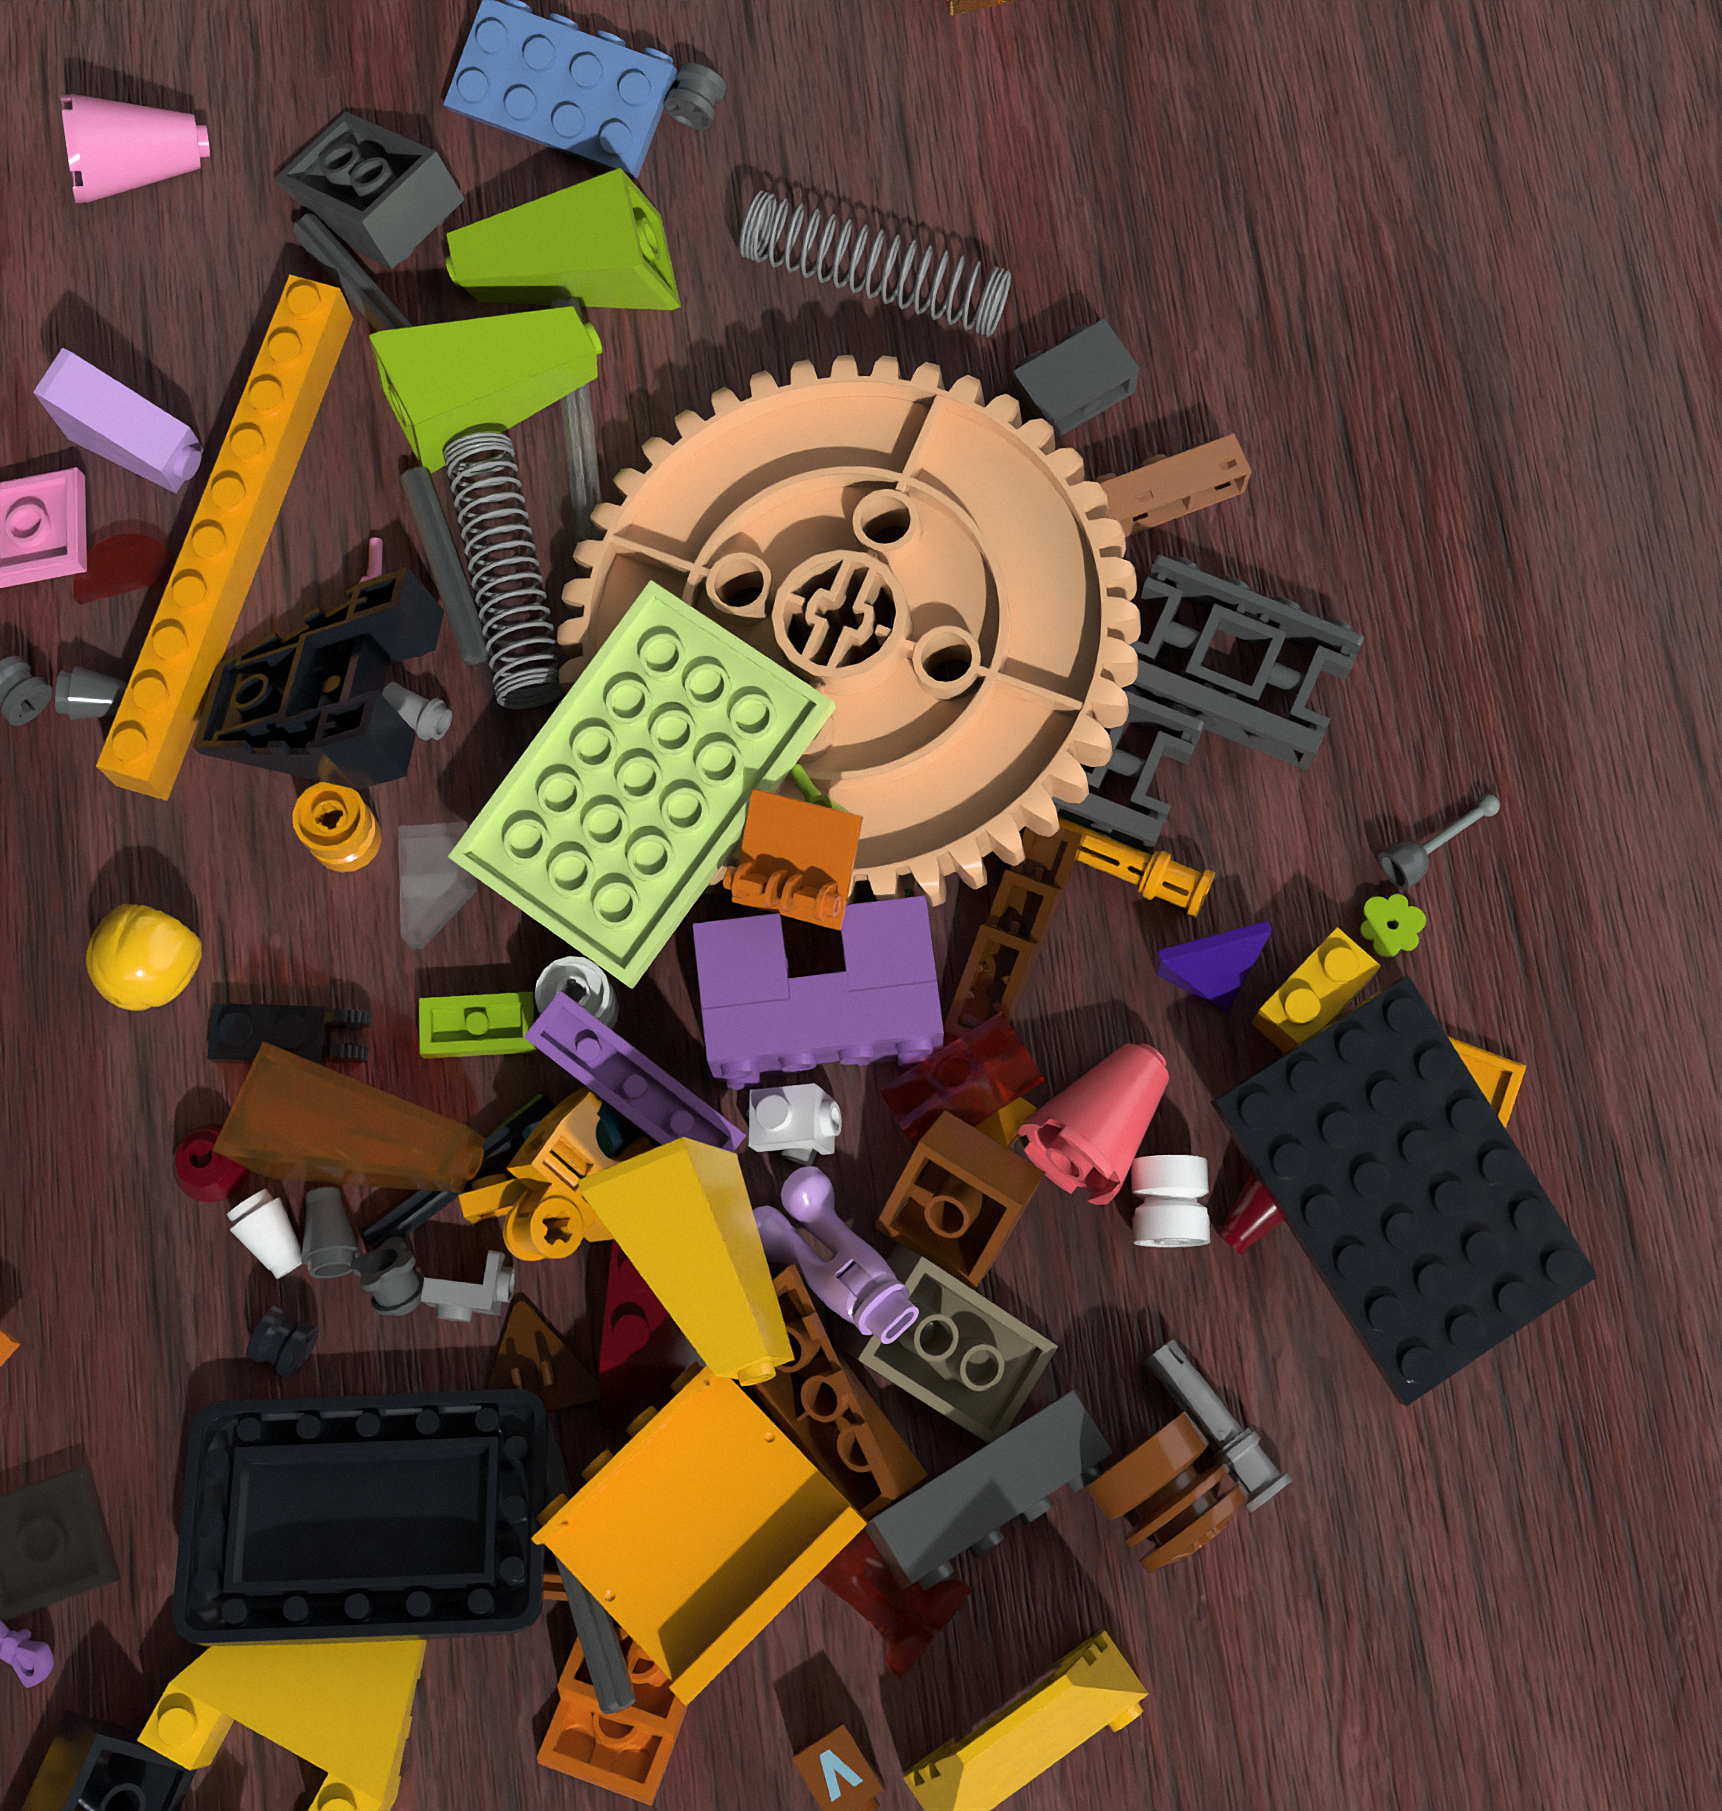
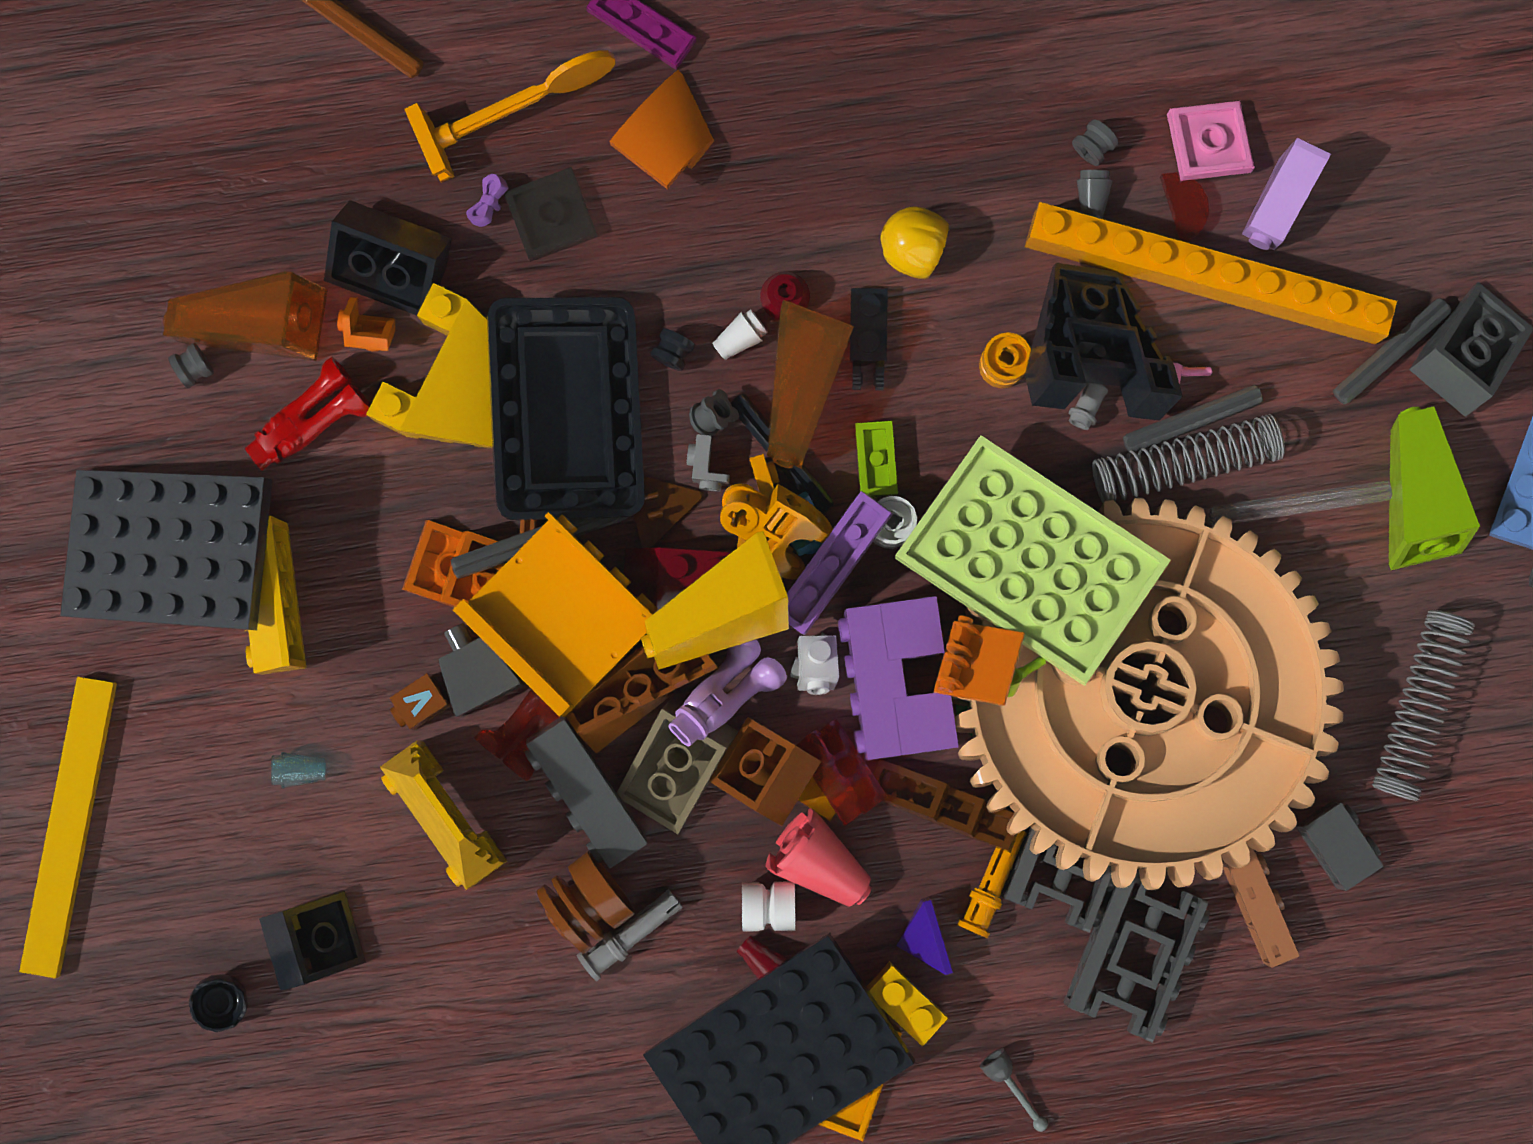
camera: 85 degrees right, 10 degrees up
(127, 145) = (1496, 181): bright pink cone -> none
(328, 1236) = (737, 373): dark grey cone -> none
(430, 882) = (968, 421): clear slope -> none
(480, 374) = (1326, 437): lime slope -> none
(790, 1677) = (474, 672): none -> dark grey torso
(1395, 910) = (960, 1066): lime plant -> none

